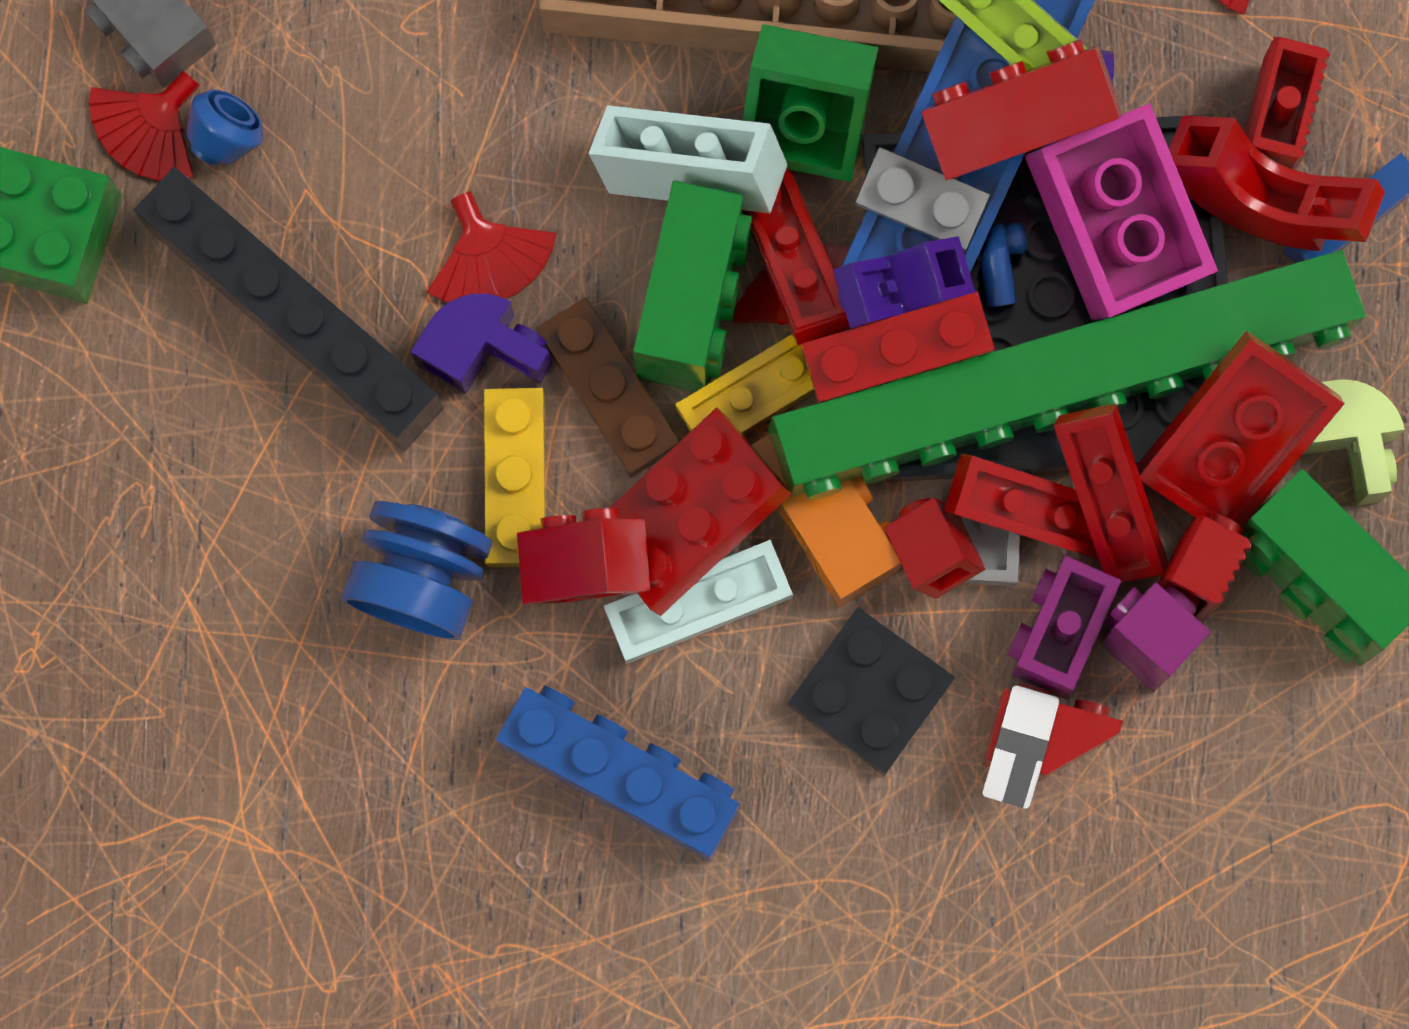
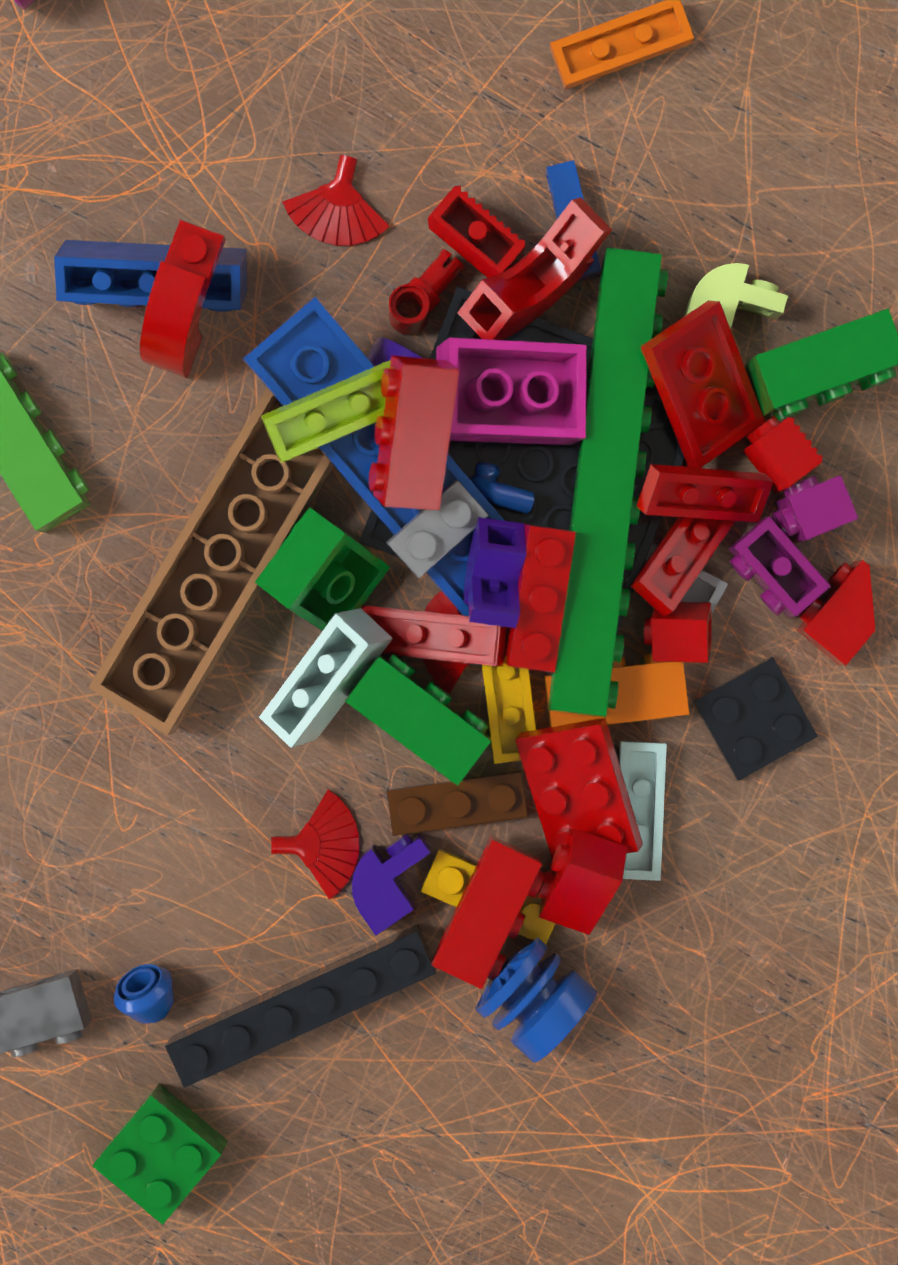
camera: 65 degrees left, 10 degrees up
(144, 128) = (118, 1047): red hand -> none
(497, 466) = (488, 913): none -> red brick
(619, 774) = (737, 920): blue brick -> none
(1021, 747) = (848, 637): white sticker -> none
(1187, 81) = (424, 292): none -> red pin

